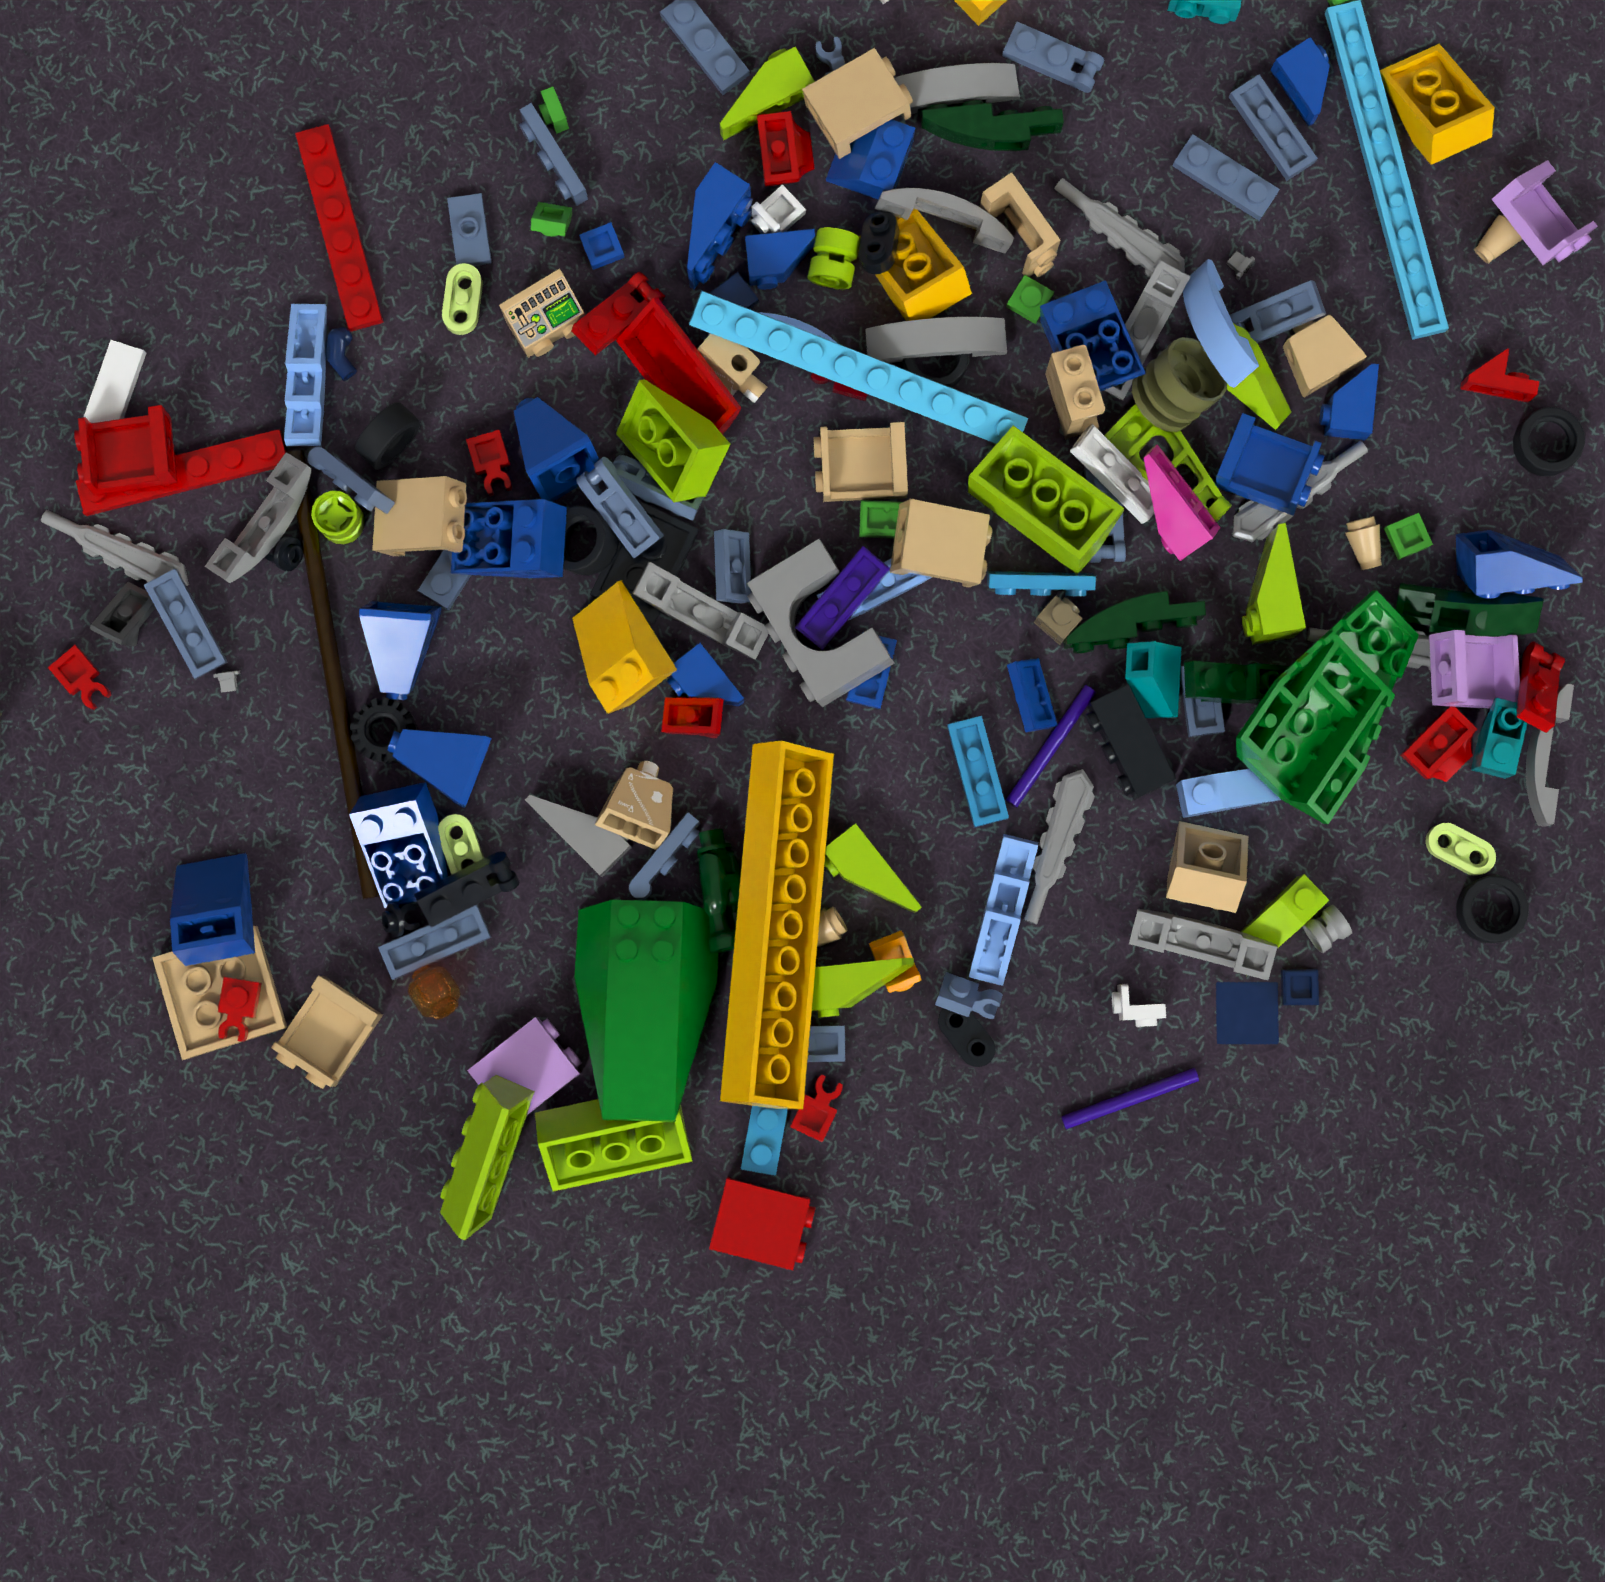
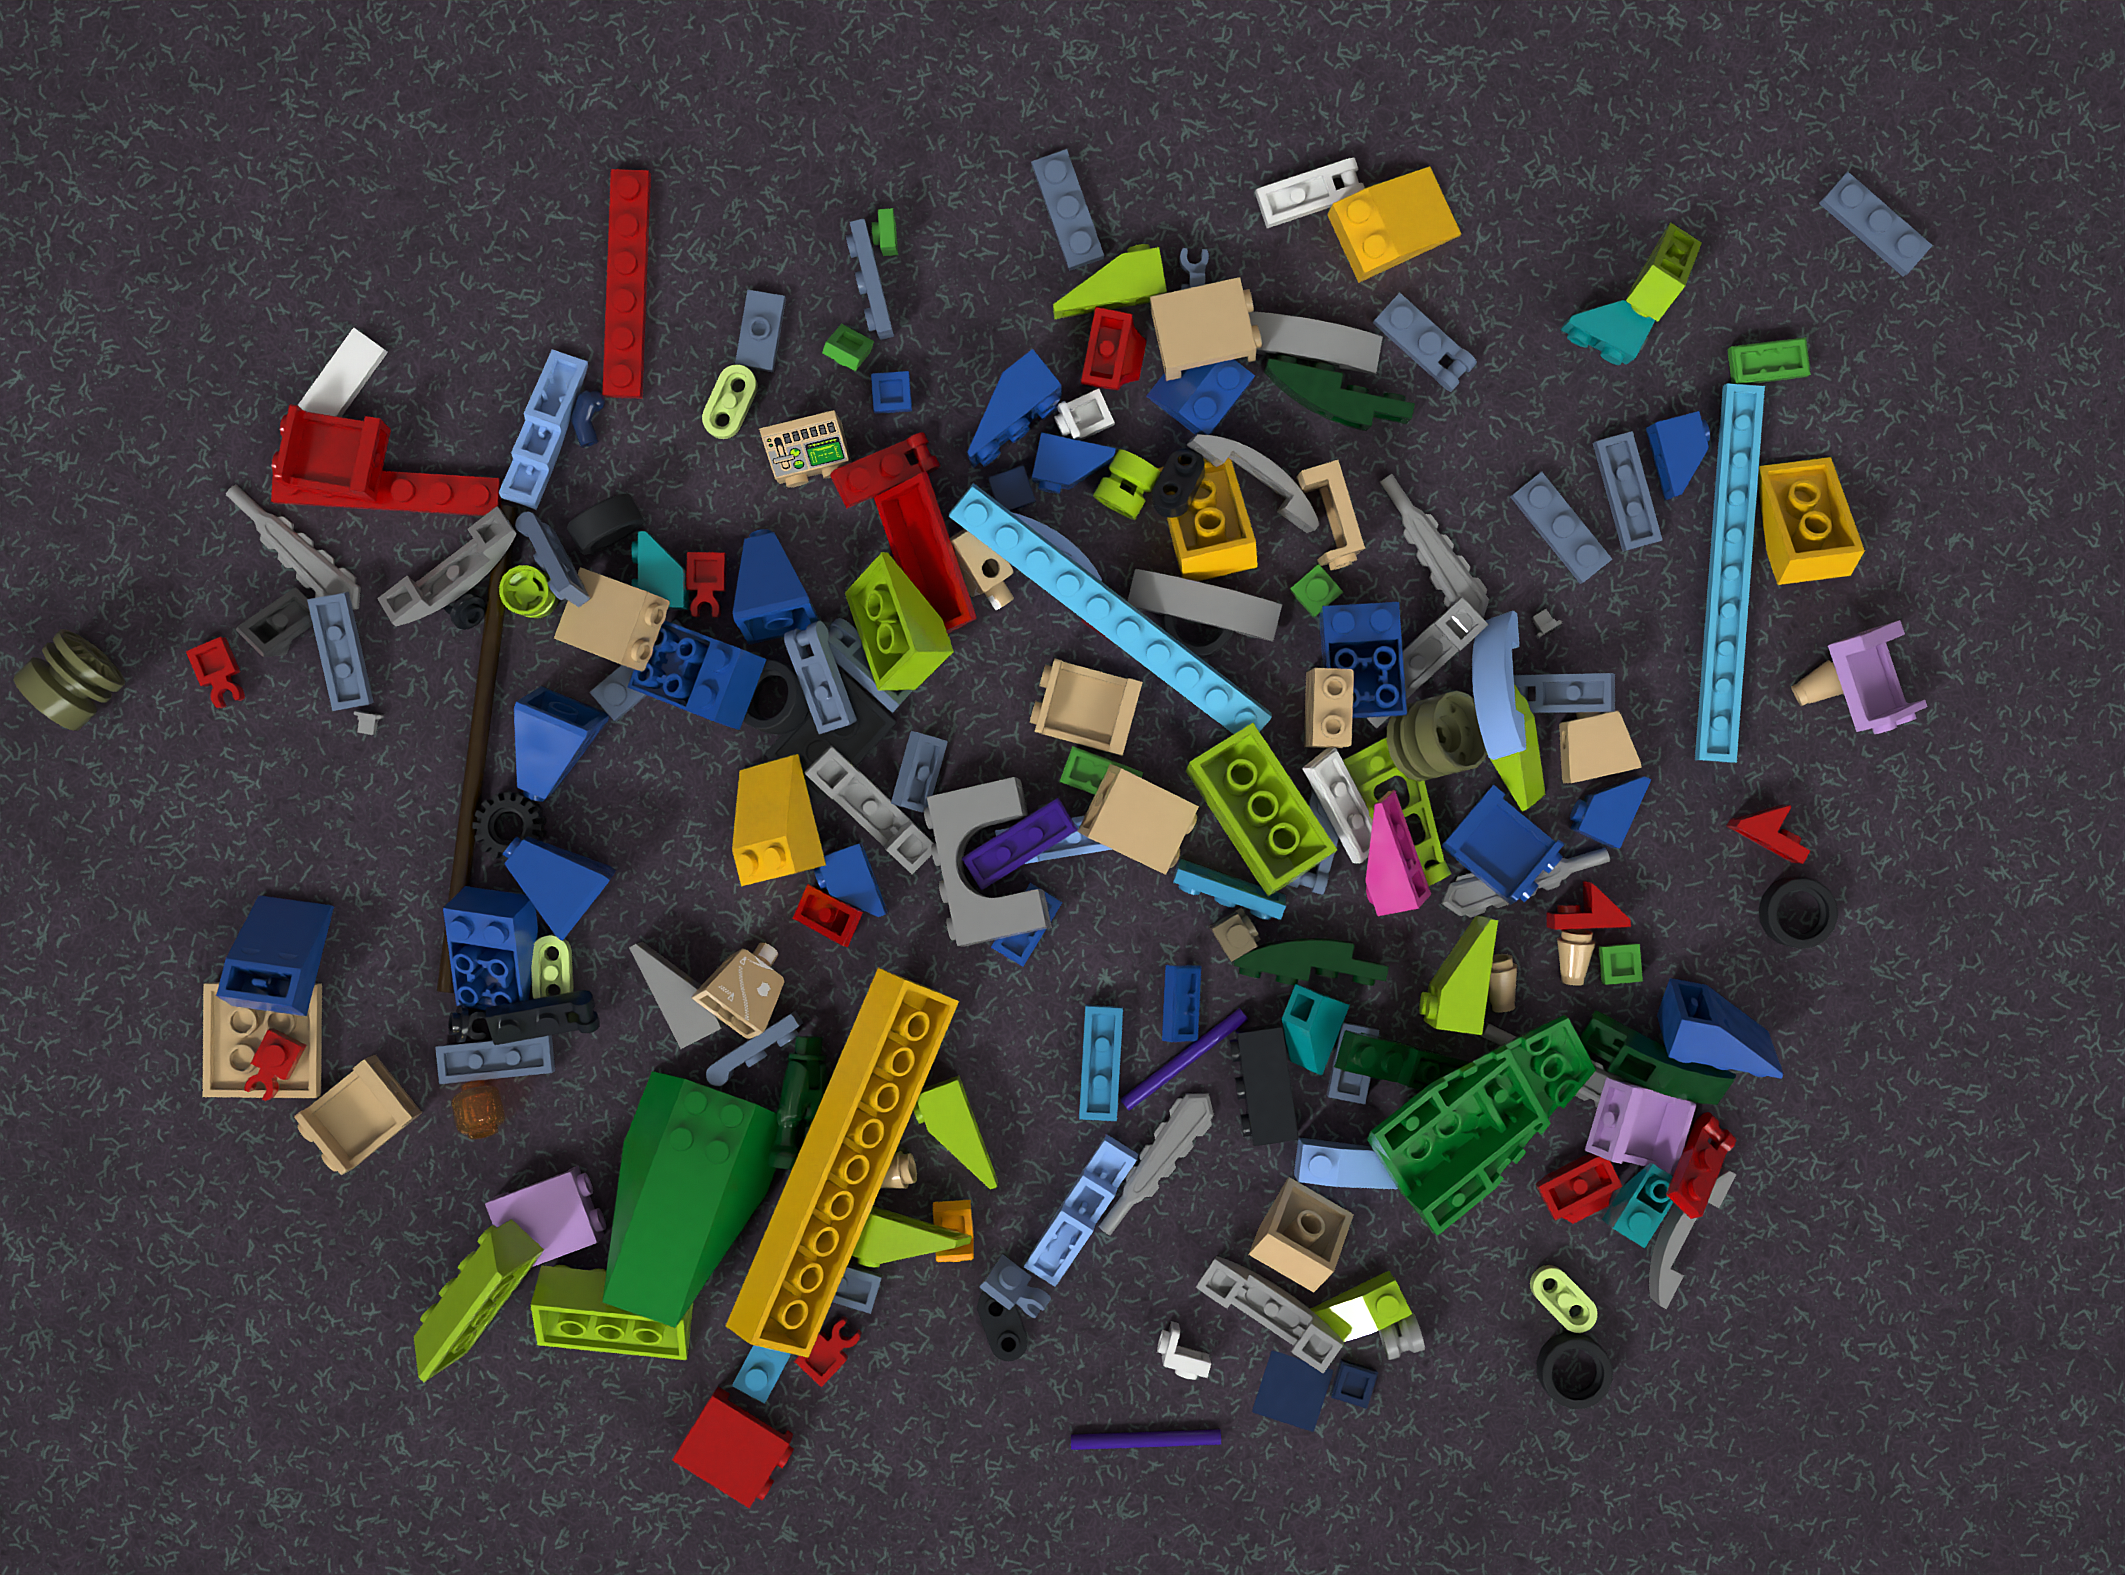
camera: 25 degrees right, 5 degrees up
(448, 461) = (659, 572): none -> teal slope
(1310, 587) = (1502, 983): none -> tan cone
(1372, 496) = (1597, 913): none -> red slope

